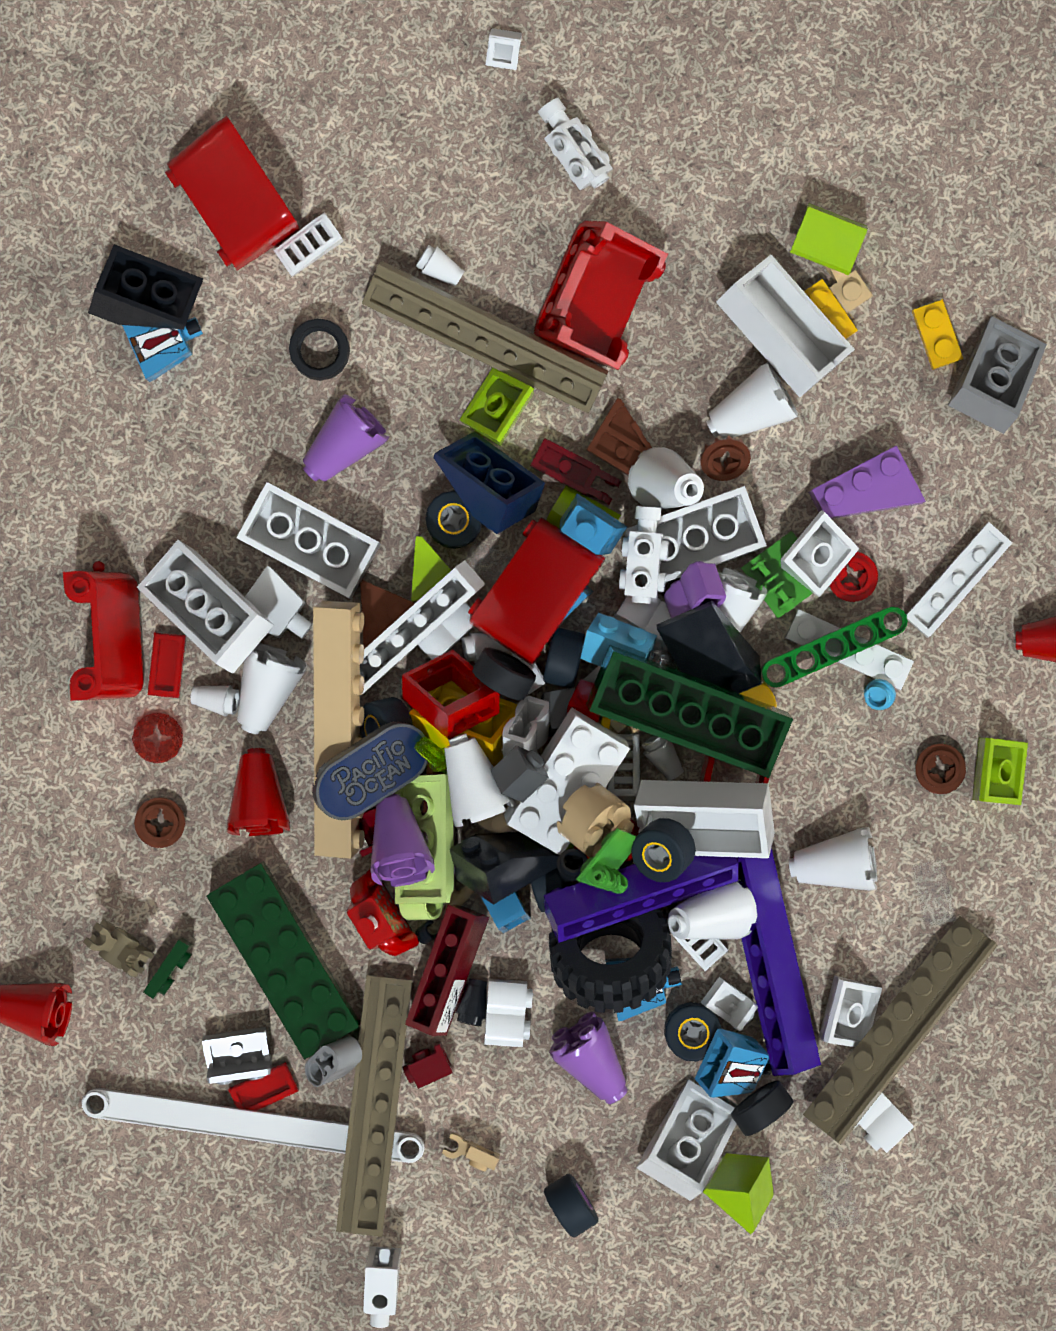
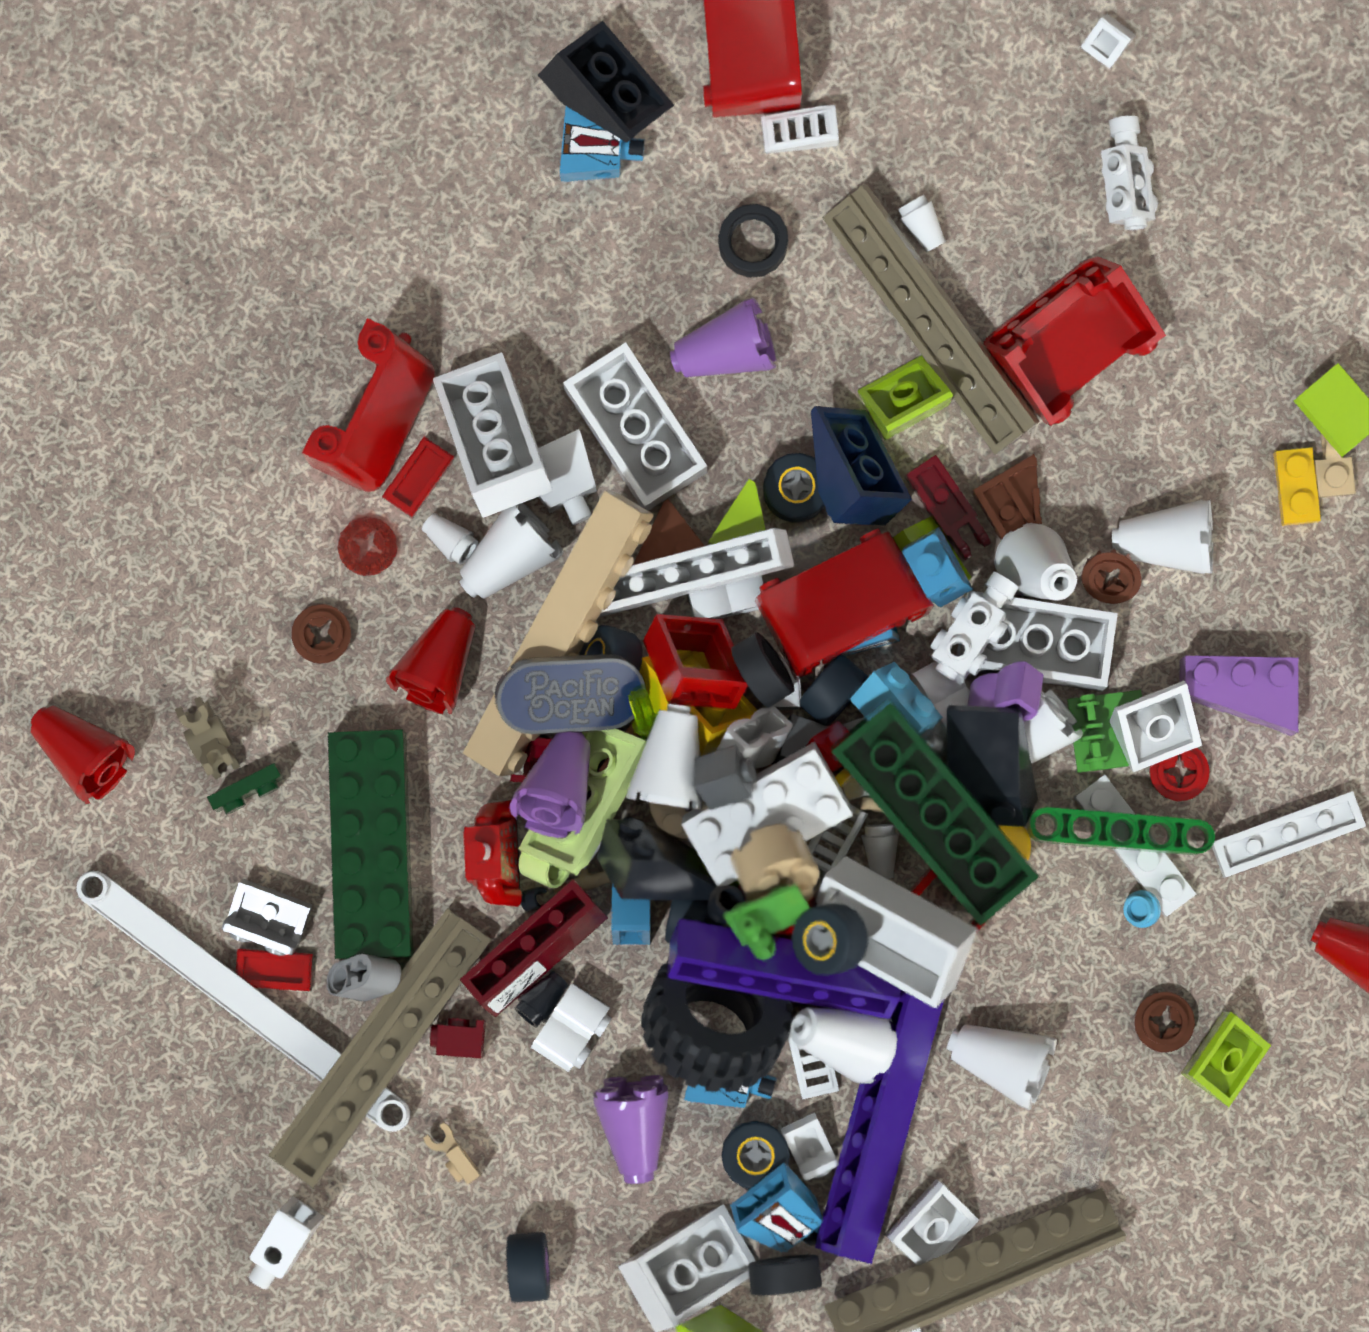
camera: 30 degrees right, 5 degrees down
(475, 643) = (748, 625): white cone -> none
(785, 325) = (1248, 472): white piece -> none

